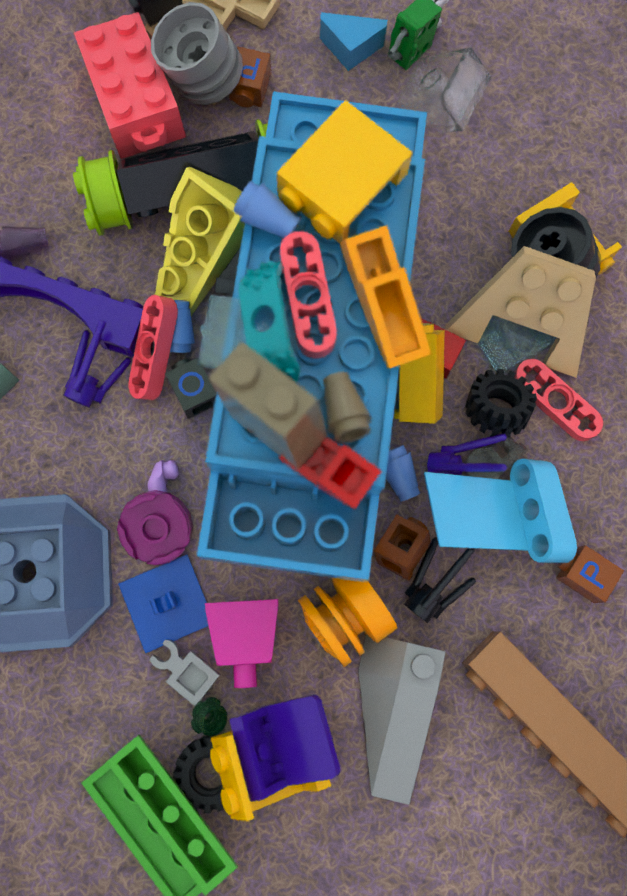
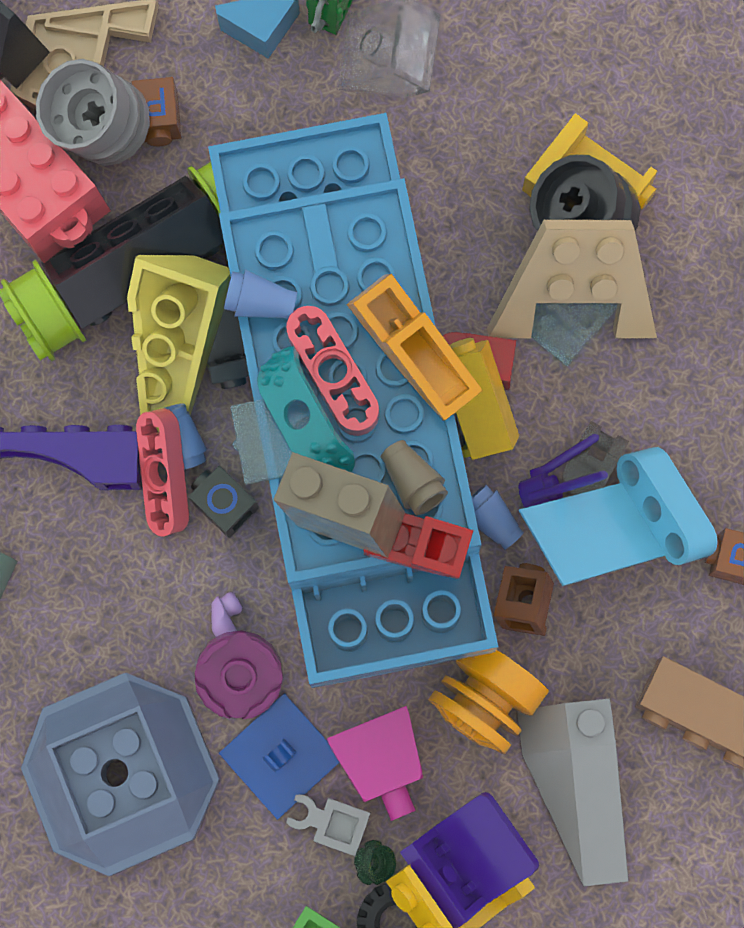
camera: 10 degrees left, 0 degrees up
(81, 386) = (93, 542): dark purple plant -> none
(341, 171) = (323, 228): yellow panel -> none
(426, 600) = (571, 651): black plant -> none
(504, 388) = (579, 379): black tyre -> none
(572, 398) = (659, 363): coral beam -> none

